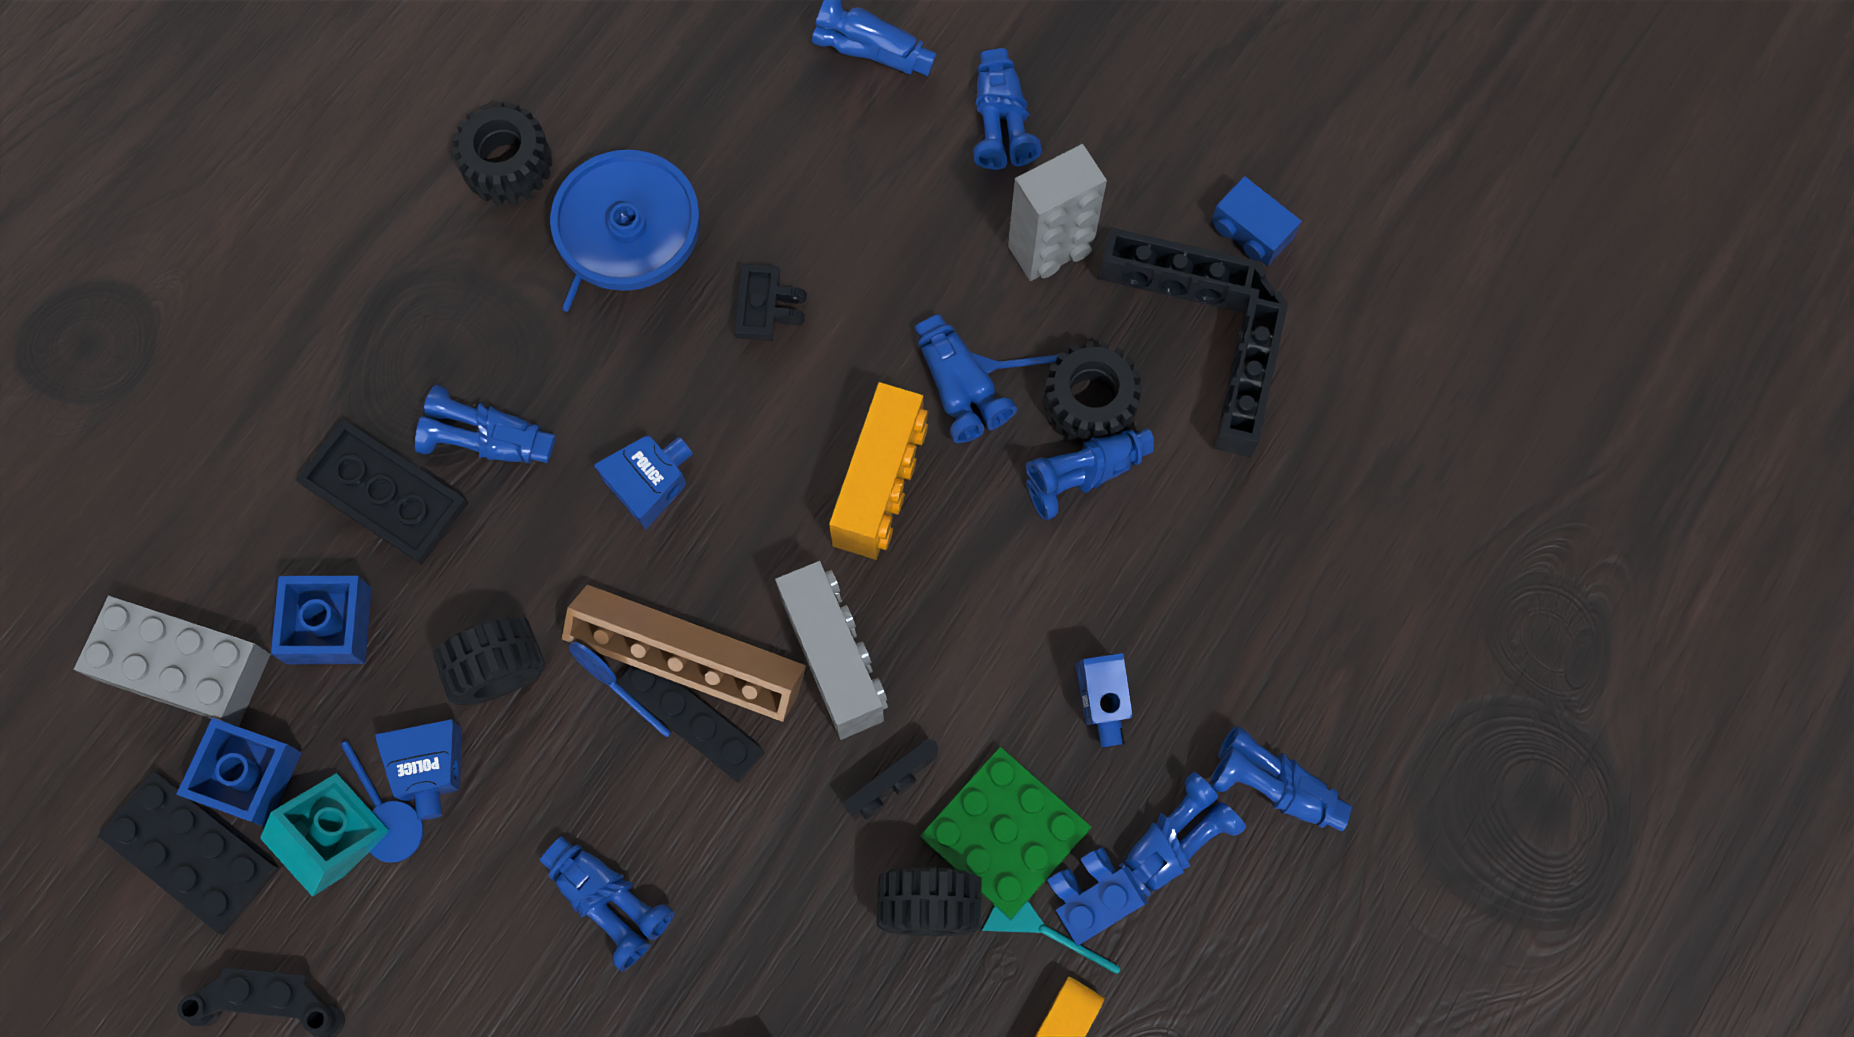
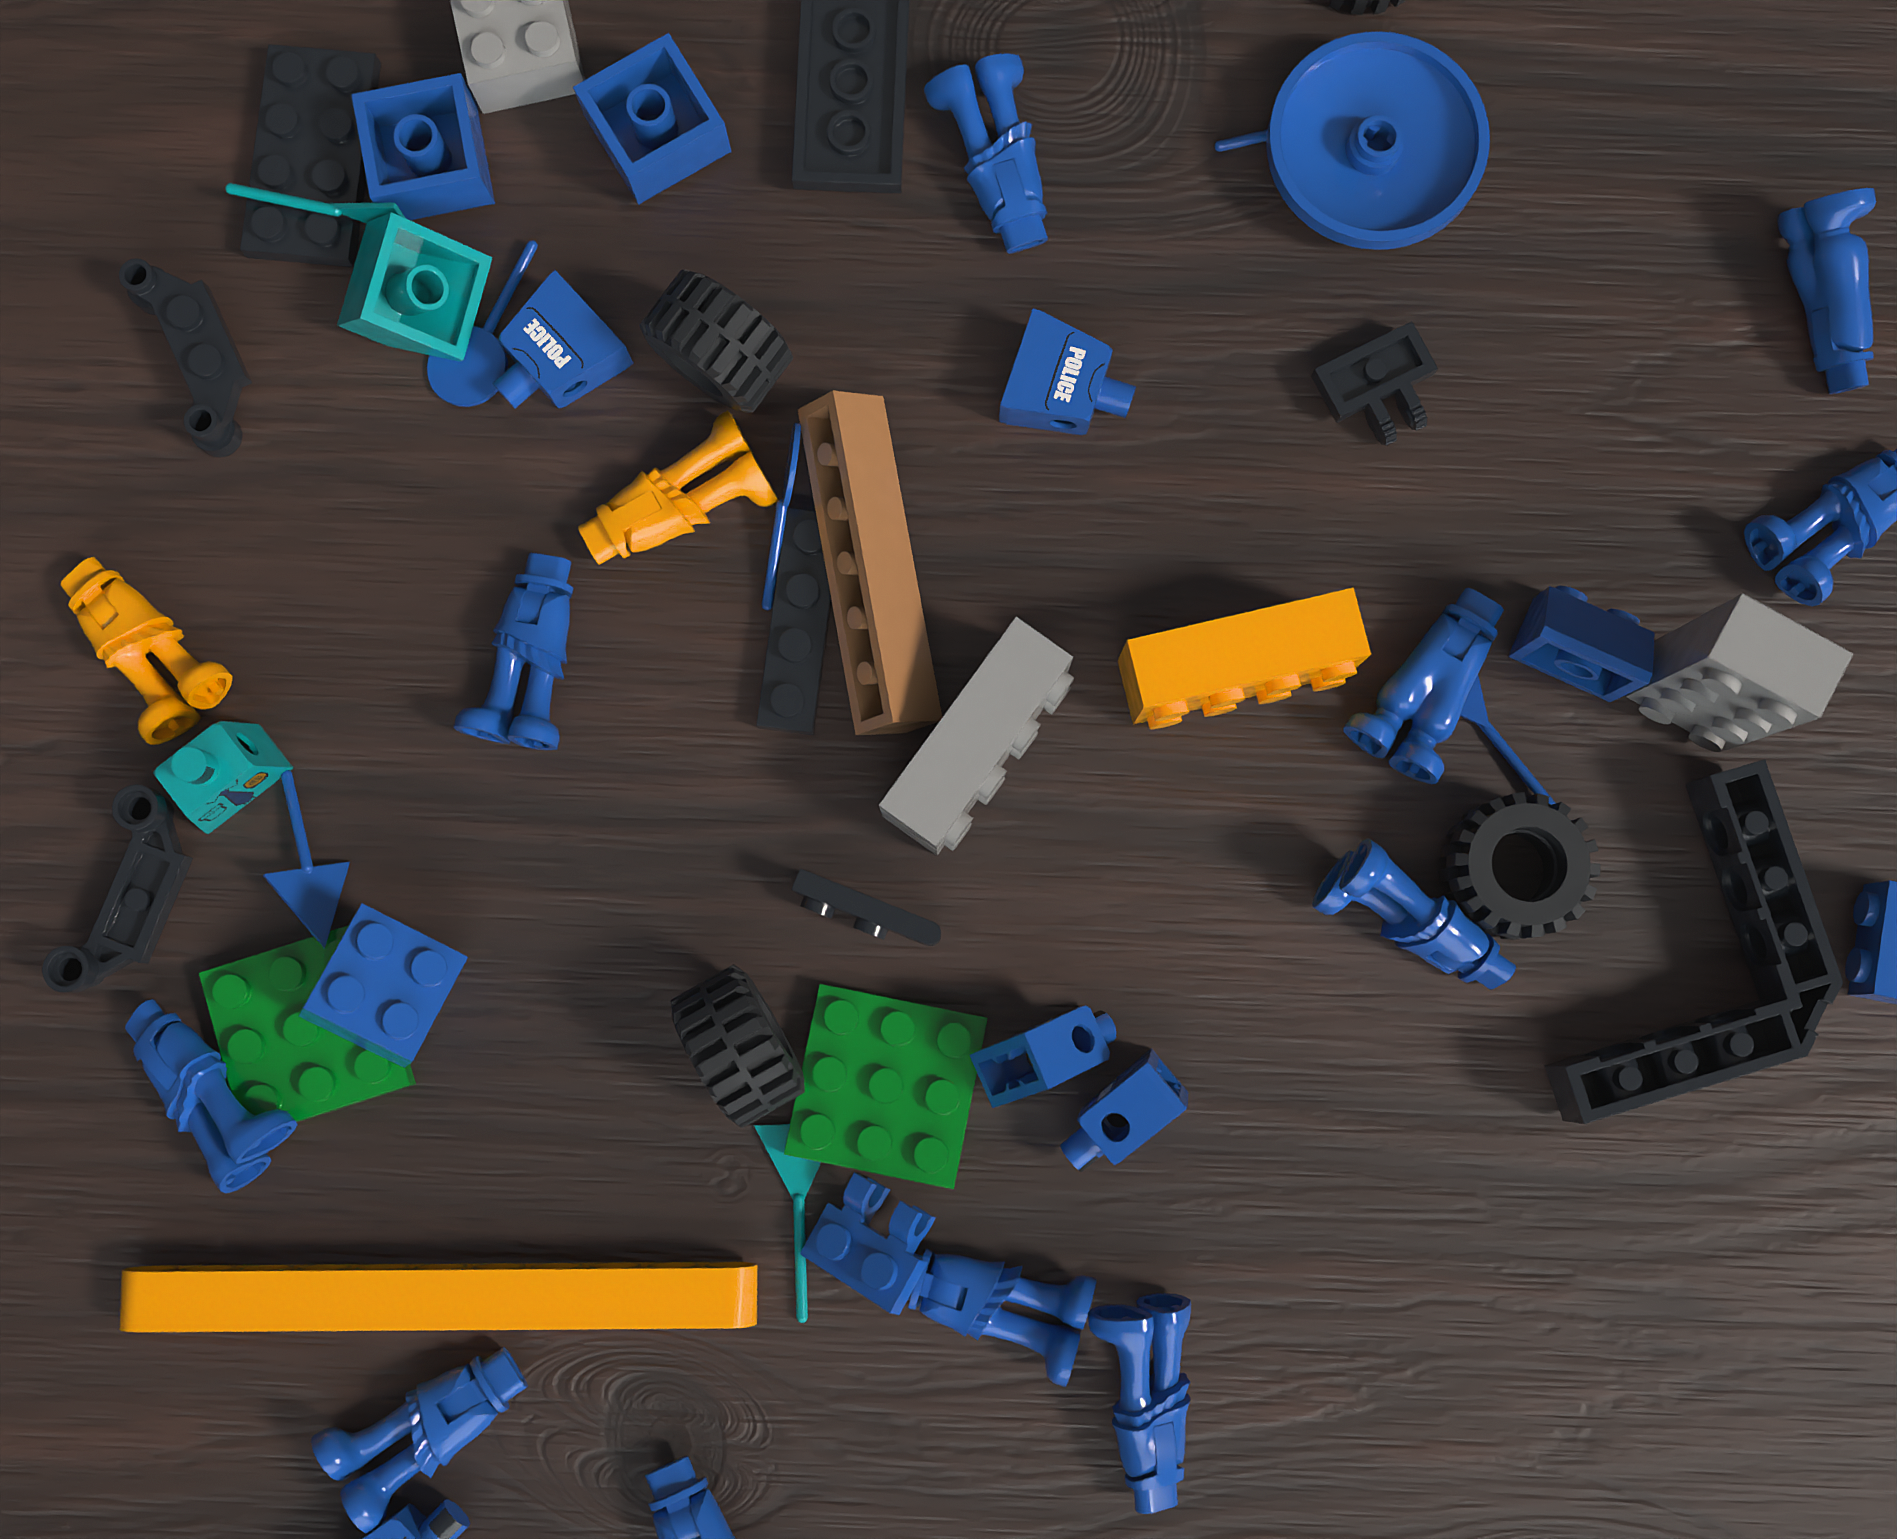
camera: 60 degrees right, 10 degrees up
(249, 839) = (360, 211): none -> teal piece
(566, 762) = (656, 508): none -> light orange piece
(987, 283) = (1585, 644): none -> blue slope
(1043, 705) = (1056, 1050): none -> blue torso

